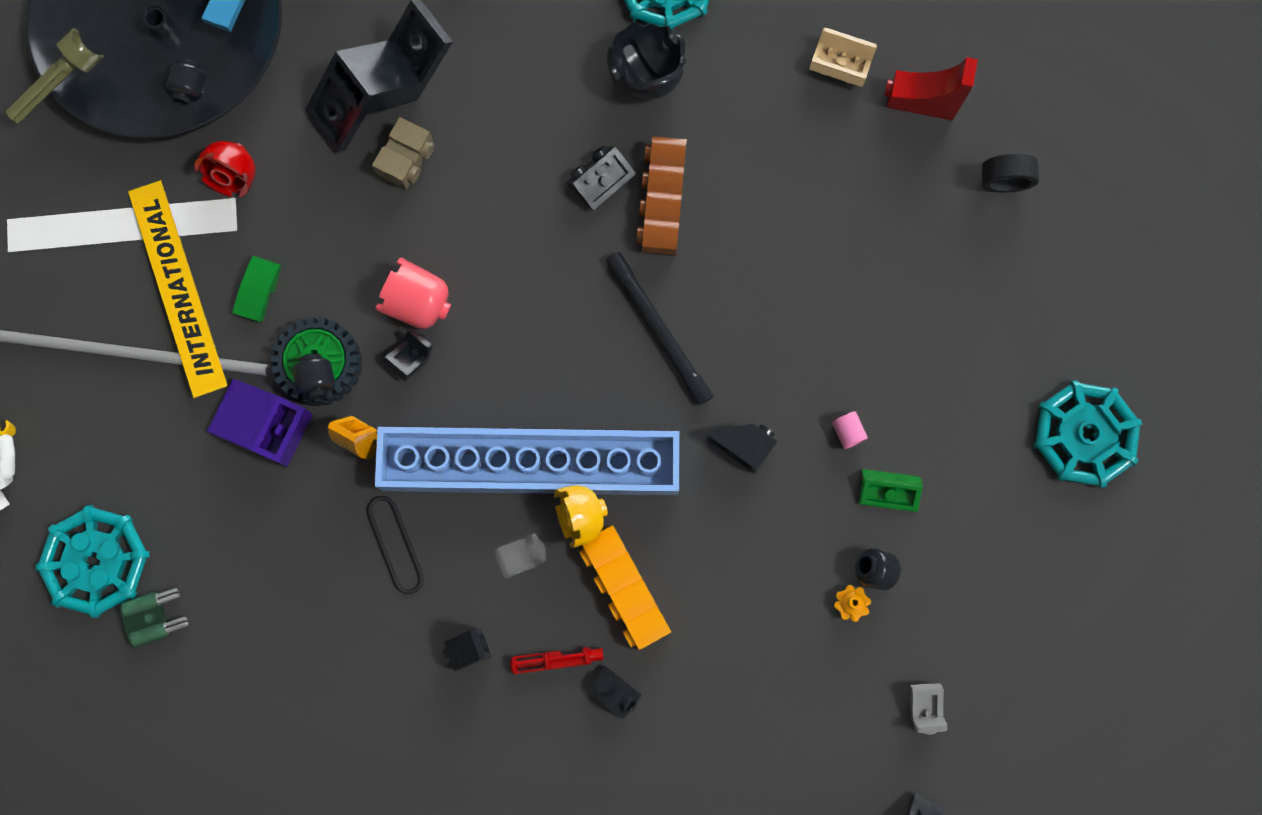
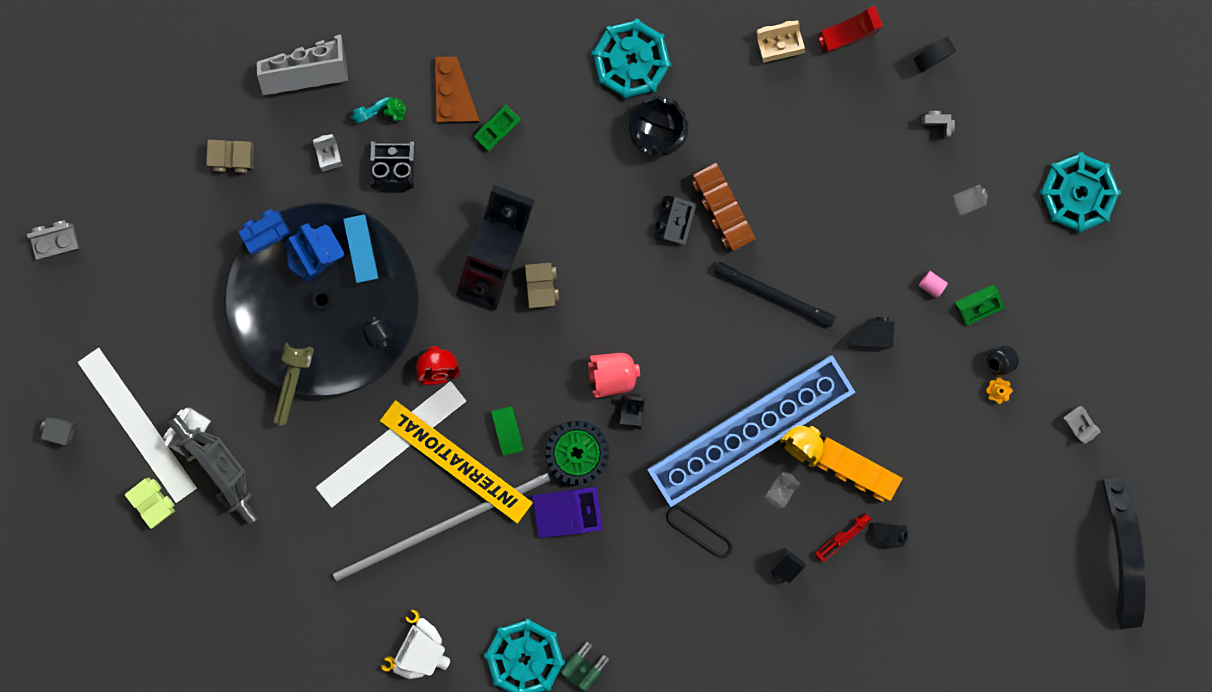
camera: 30 degrees left, 10 degrees up
(313, 376) = (588, 465): black head -> none
(354, 436) = (638, 484): light orange slope -> none
(953, 362) = (970, 199): none -> clear bracket
(970, 249) = (936, 118): none -> light grey bracket

